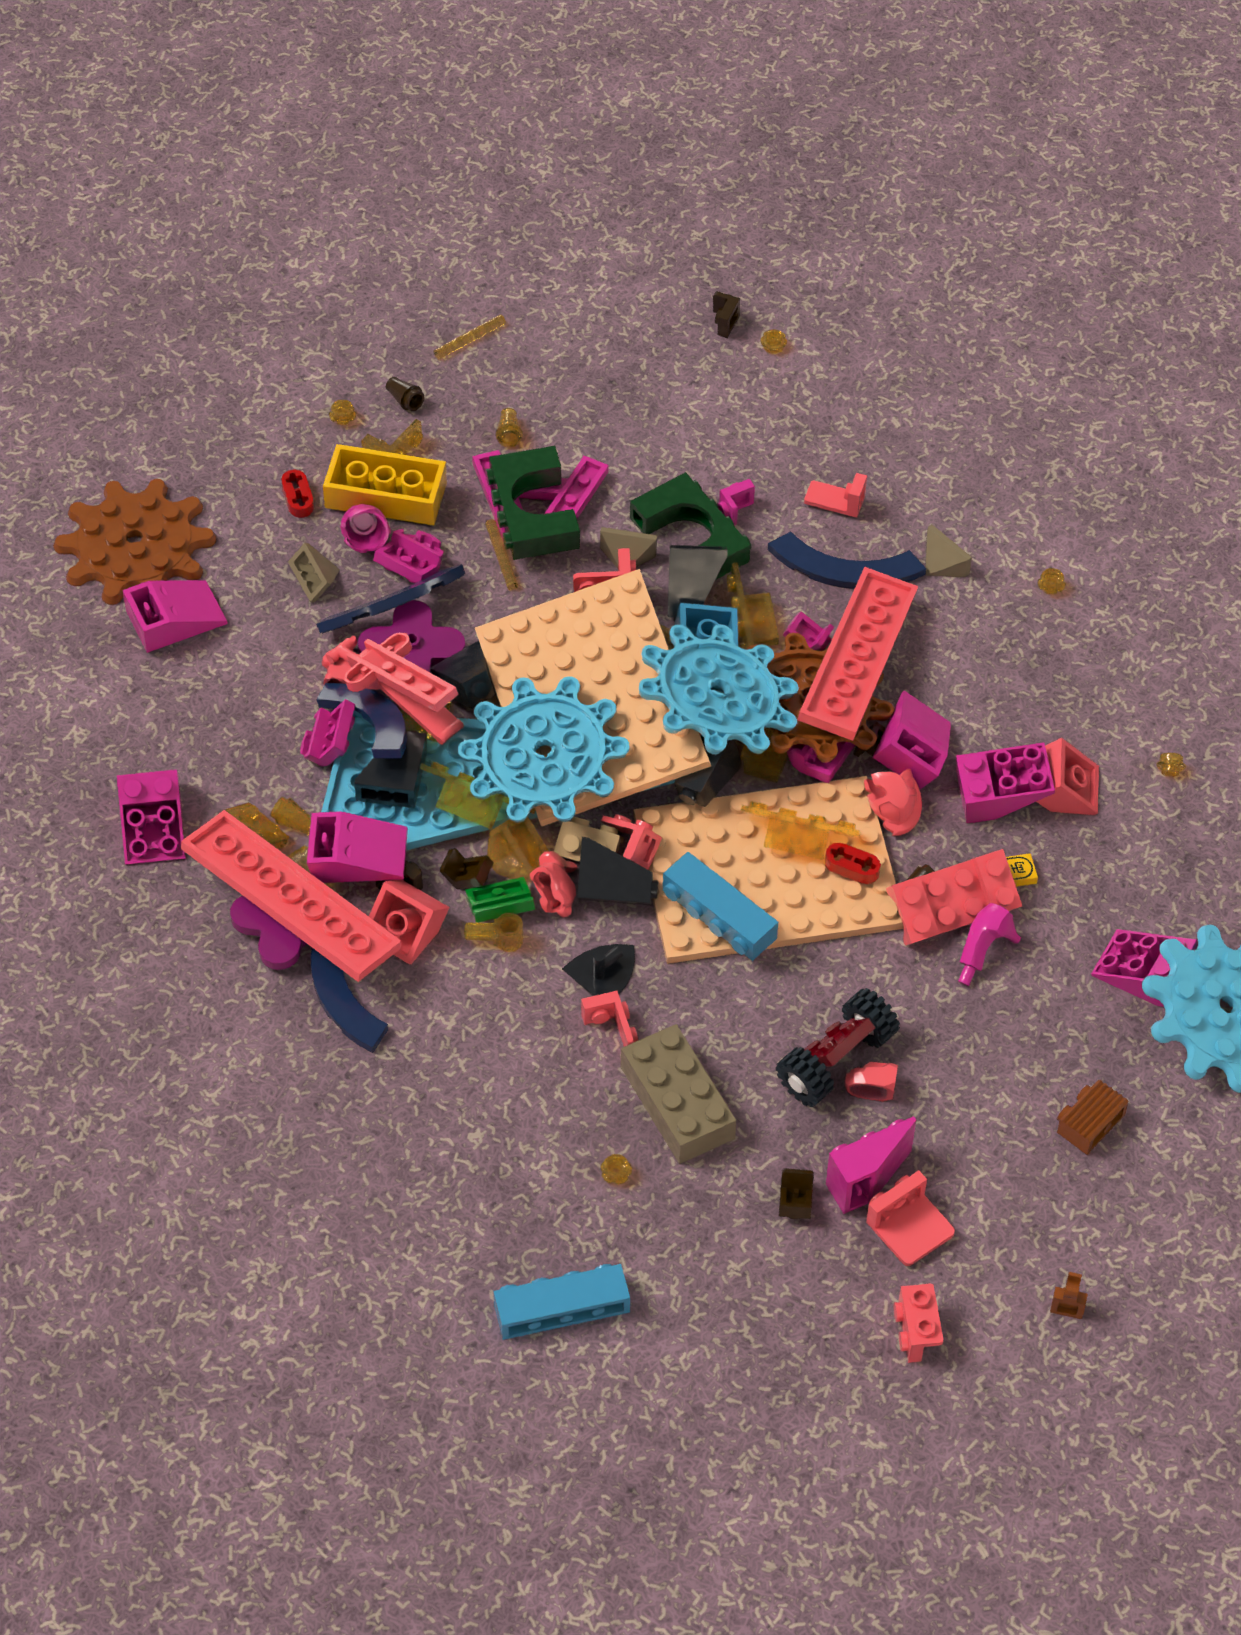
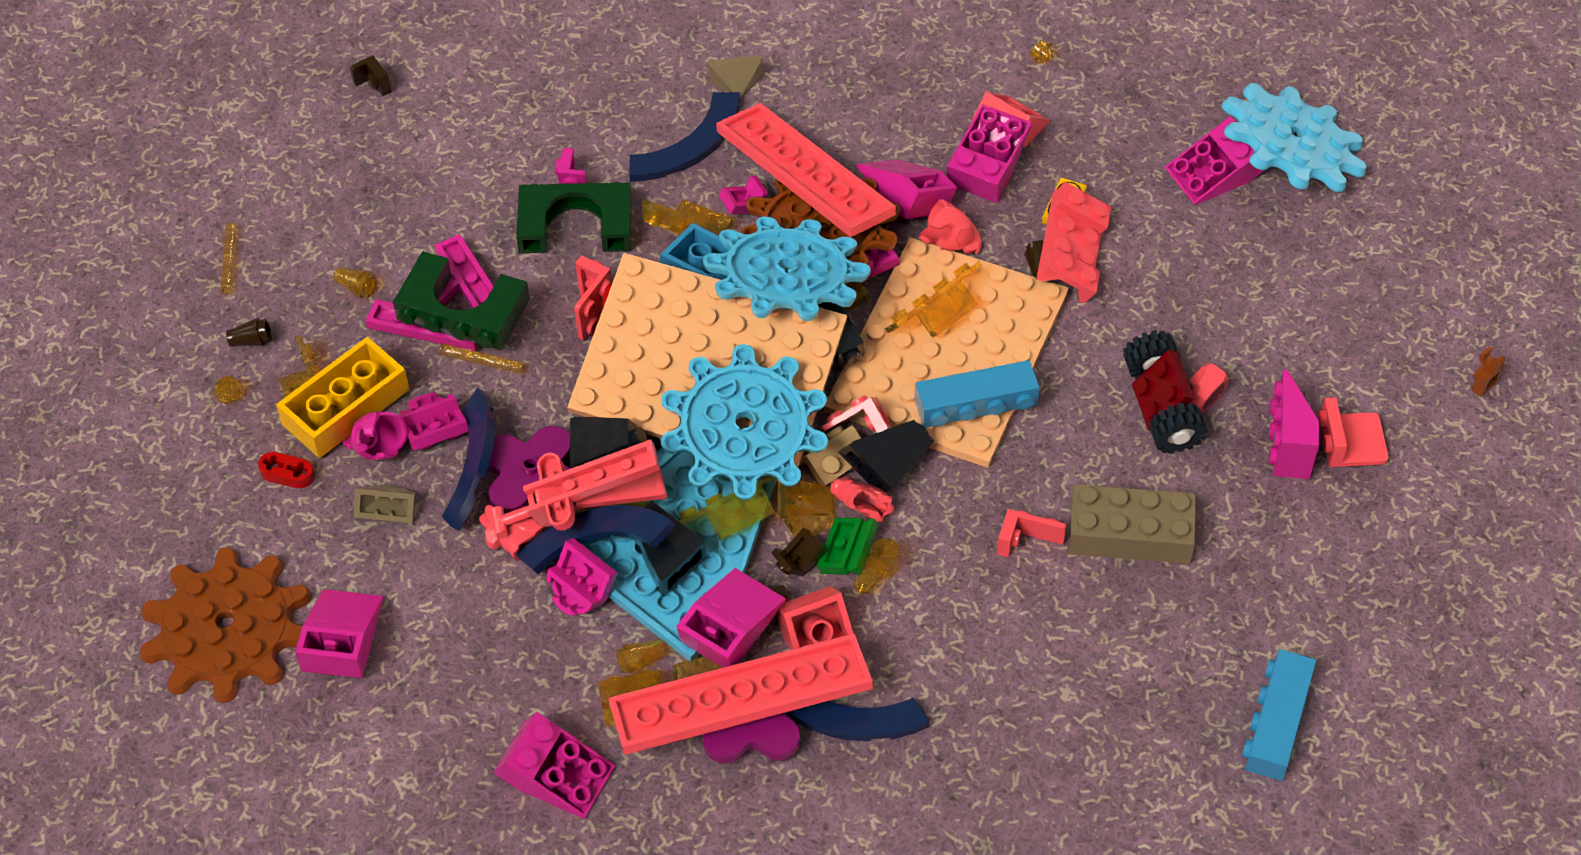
camera: 55 degrees left, 0 degrees up
(603, 968) = (964, 515): black shield -> none
(618, 1162) = (1171, 601): clear yellow plate -> none
(642, 546) = (553, 269): dark tan slope -> none
(692, 574) = (634, 228): slope -> none
(773, 341) = (426, 63): clear yellow plate -> none
(796, 1193) = (1280, 499): dark brown bracket -> none
(838, 499) = (625, 107): coral bracket -> none
(852, 863) = (995, 288): red beam -> none
(919, 1320) = (1451, 479): coral bracket -> none
(987, 926) = (1119, 232): dark pink animal -> none
(1050, 576) = (815, 25): clear yellow plate -> none
(1092, 1116) = (1329, 271): dark orange brick -> none

